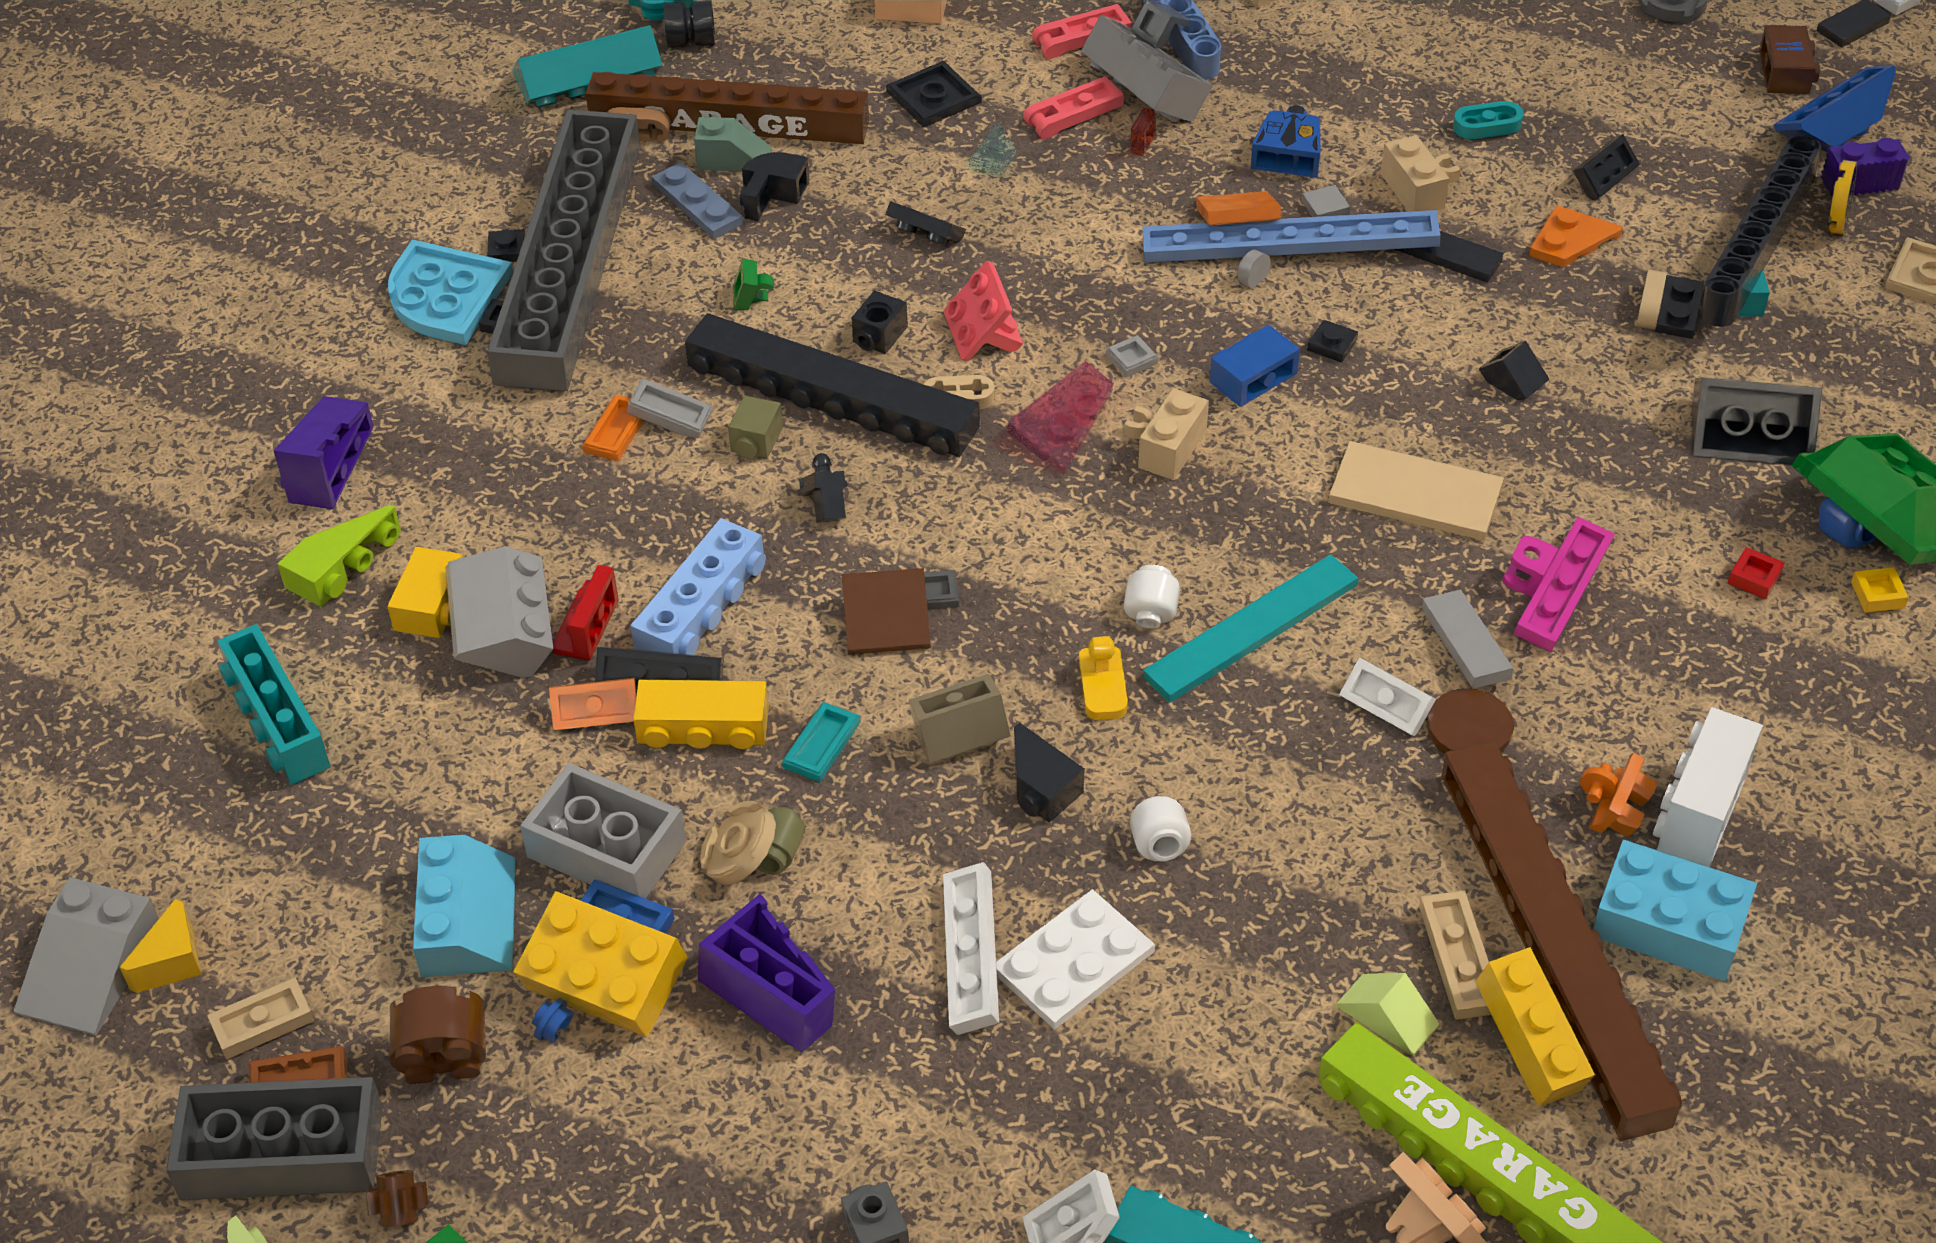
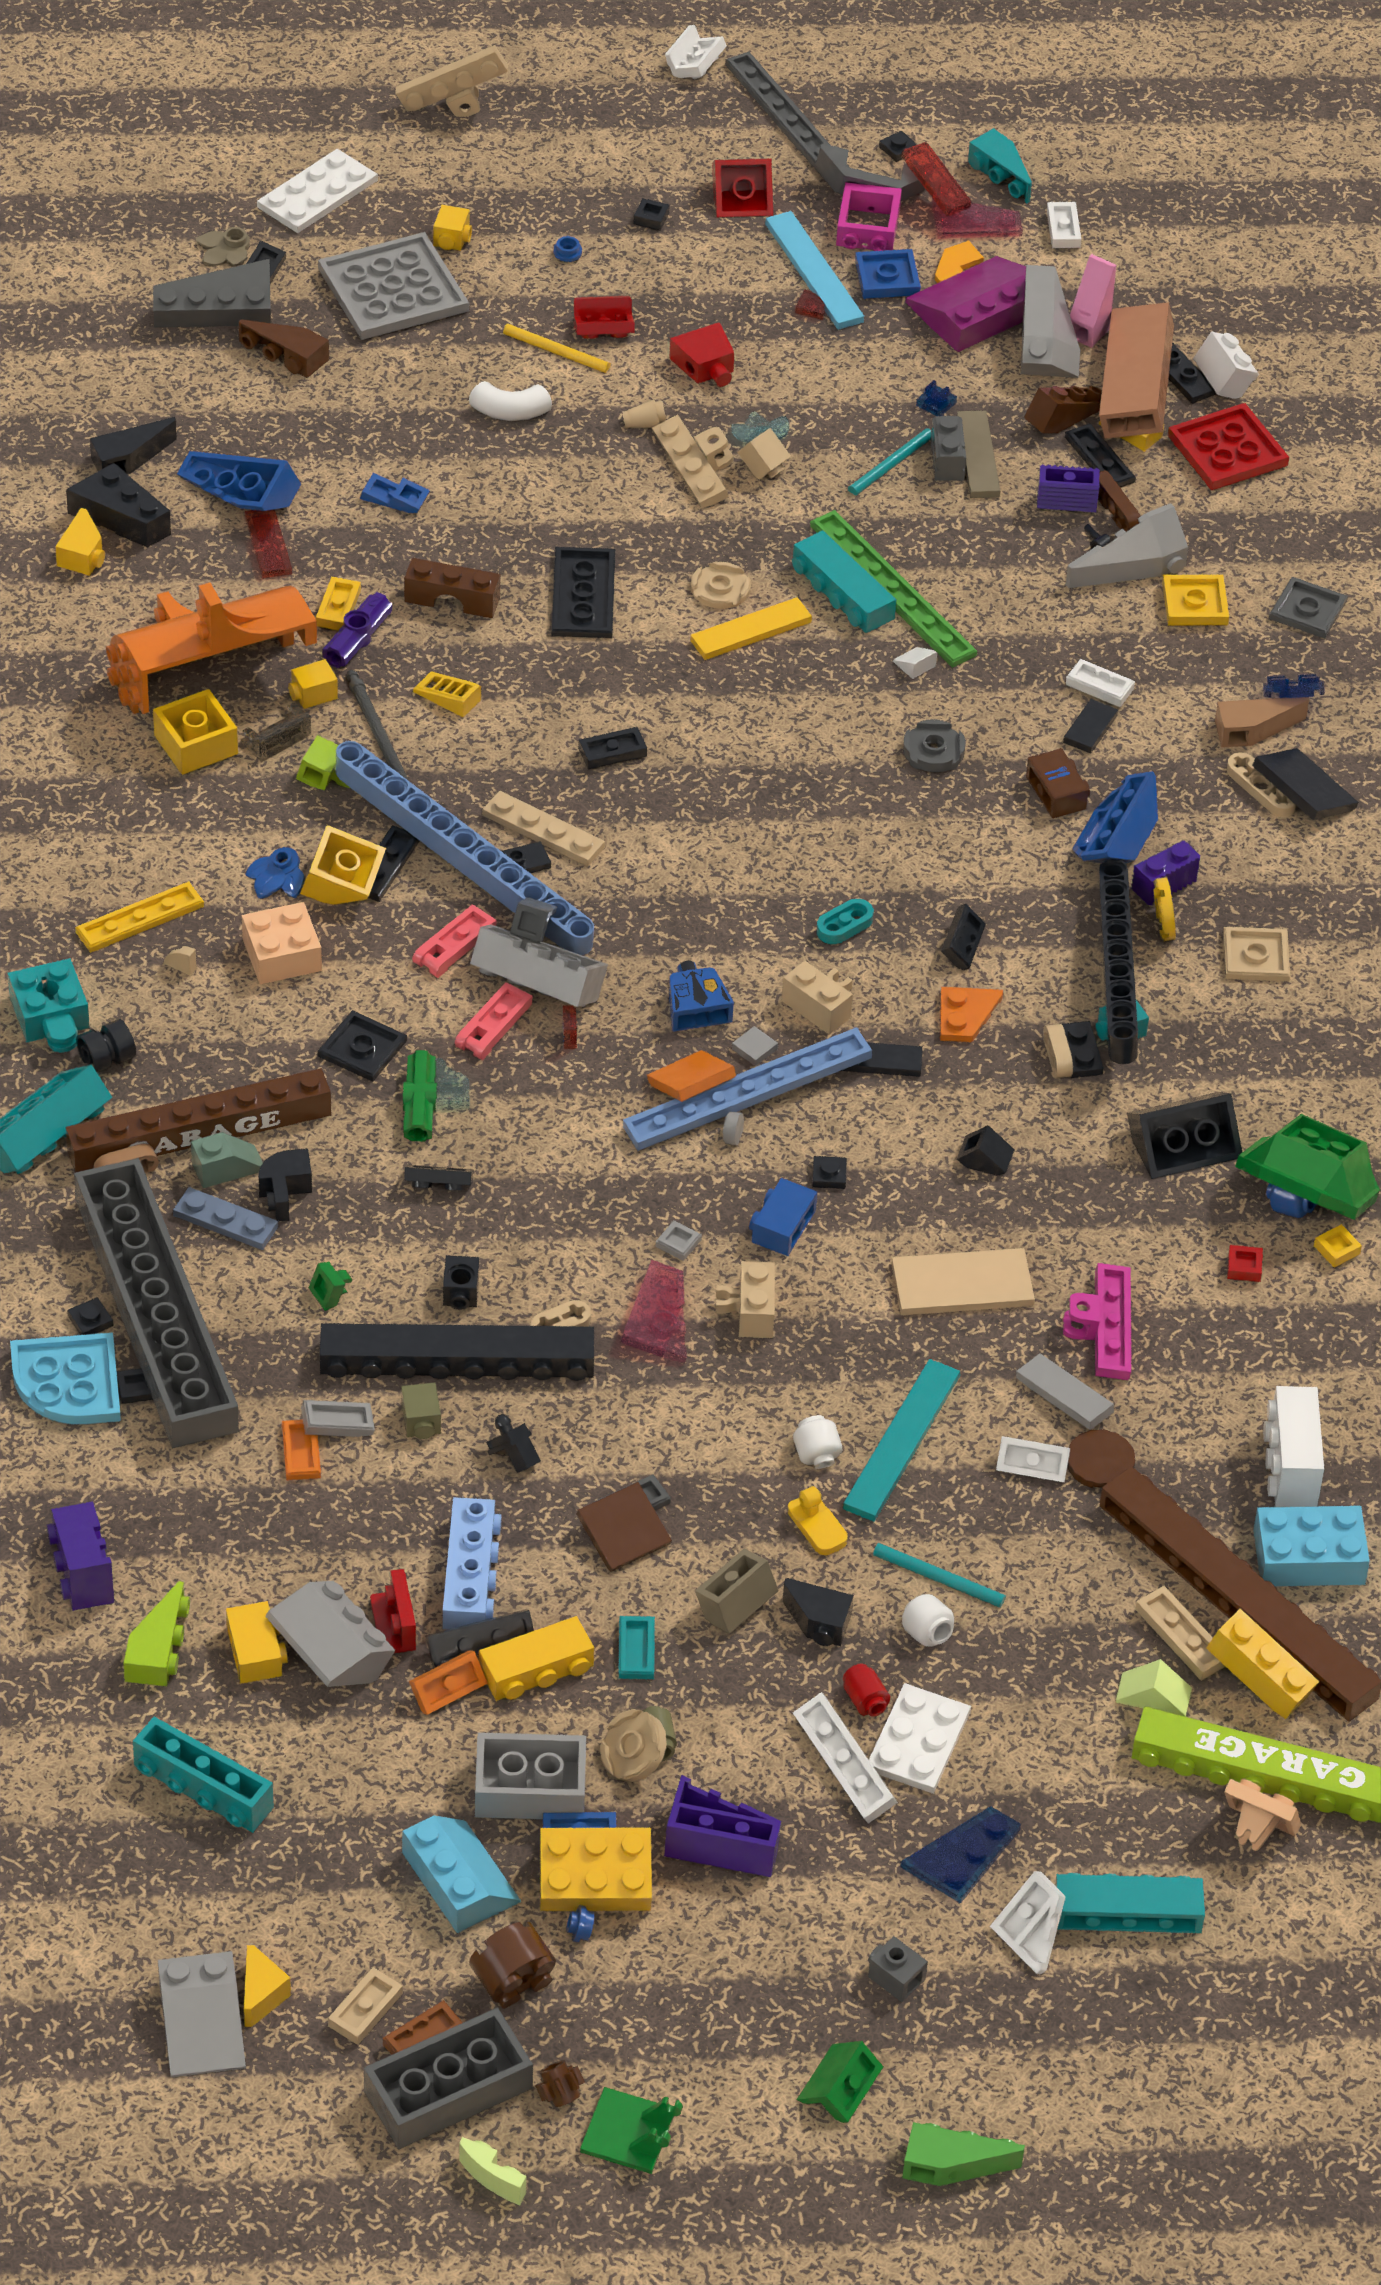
camera: 30 degrees left, 0 degrees up
(954, 149) = (419, 1096): none -> green piece
(982, 315) = (542, 1246): coral bracket -> none
(1042, 881) = (866, 1690): none -> red brick
(1045, 1116) = (963, 1854): none -> clear blue wing
(1209, 786) = (939, 1575): none -> teal bar
(1614, 791) = (1228, 1475): orange hips -> none

